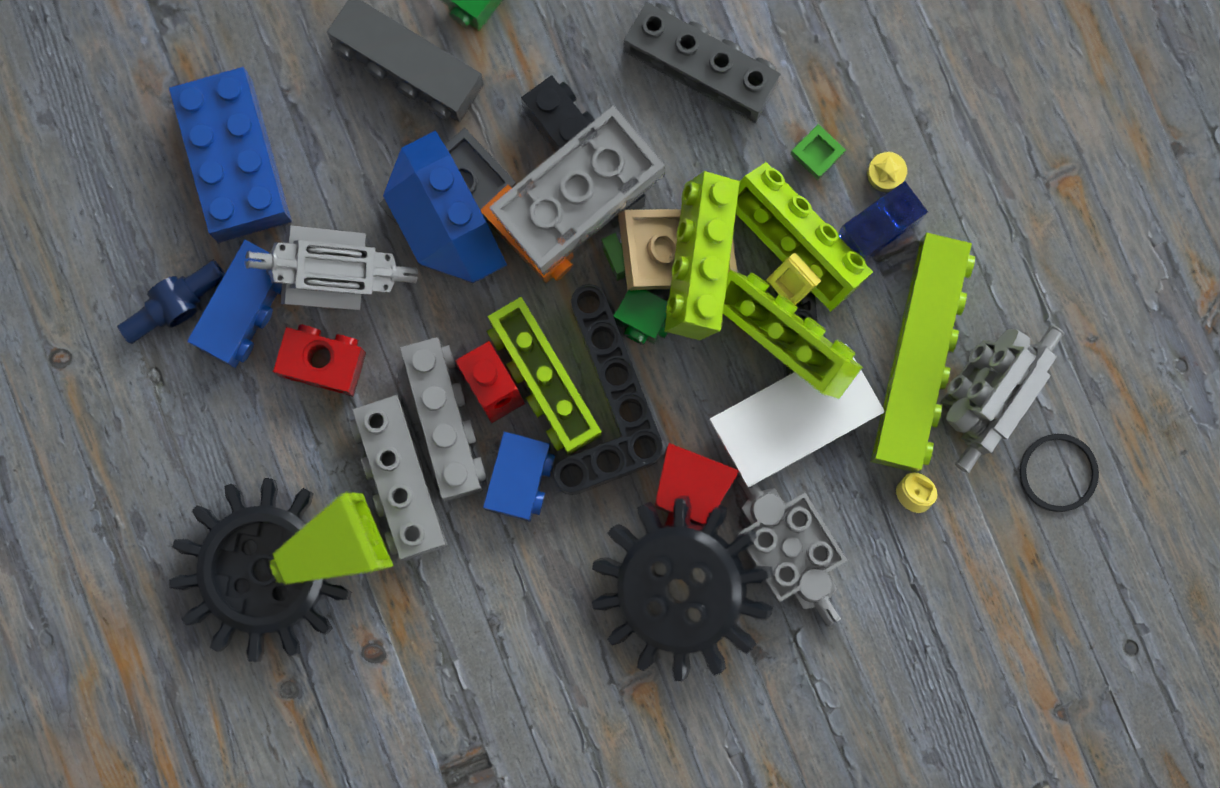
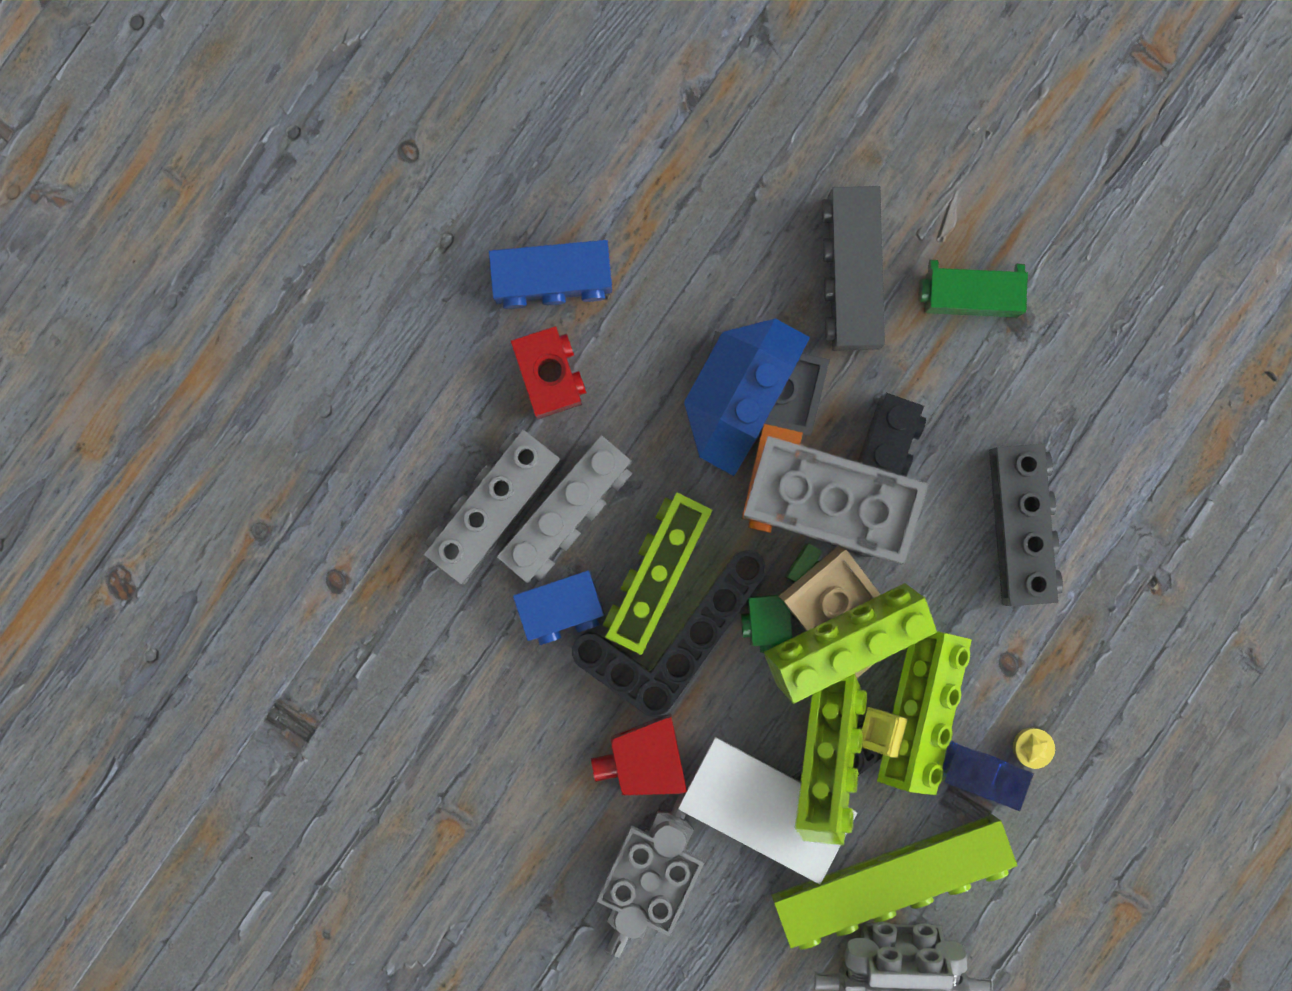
camera: 55 degrees right, 5 degrees up
(171, 302) = (516, 213): dark blue pin -> none
(224, 563) = (306, 462): black gear -> none
(230, 155) = (673, 176): blue brick -> none
(328, 268) = (630, 328): light grey piece -> none
(333, 544) = (394, 497): lime slope -> none
(490, 381) = (625, 526): red torso -> none
(718, 598) = (585, 791): black gear -> none
(818, 152) = (1011, 677): bright green plate -> none
(916, 492) = (769, 953): light yellow tile -> none

